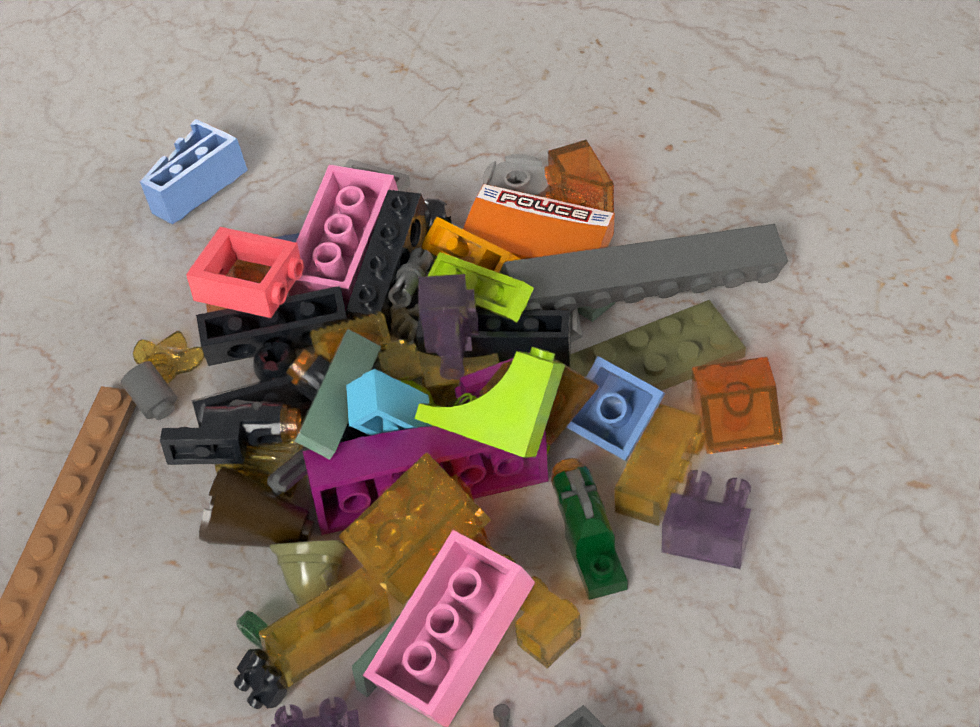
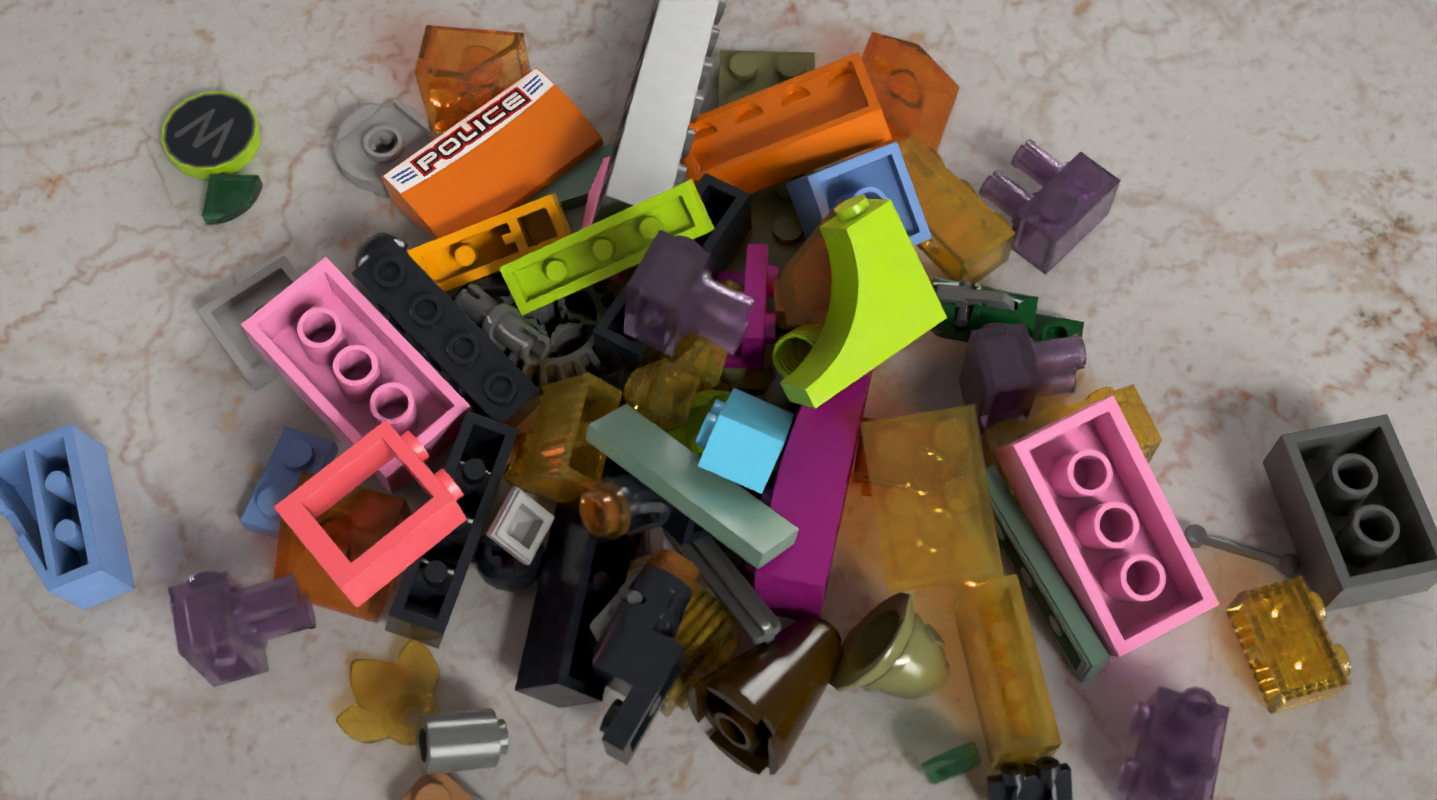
camera: 65 degrees left, 15 degrees up
(159, 261) = (227, 626): none -> clear purple brick
(282, 344) = (520, 525): none -> light grey slope
(438, 138) = (230, 197): none -> clear green tile
(474, 110) = (211, 135): none -> tile
(538, 541) = (1010, 370): none -> brick
(647, 345) = (789, 128): none -> orange slope

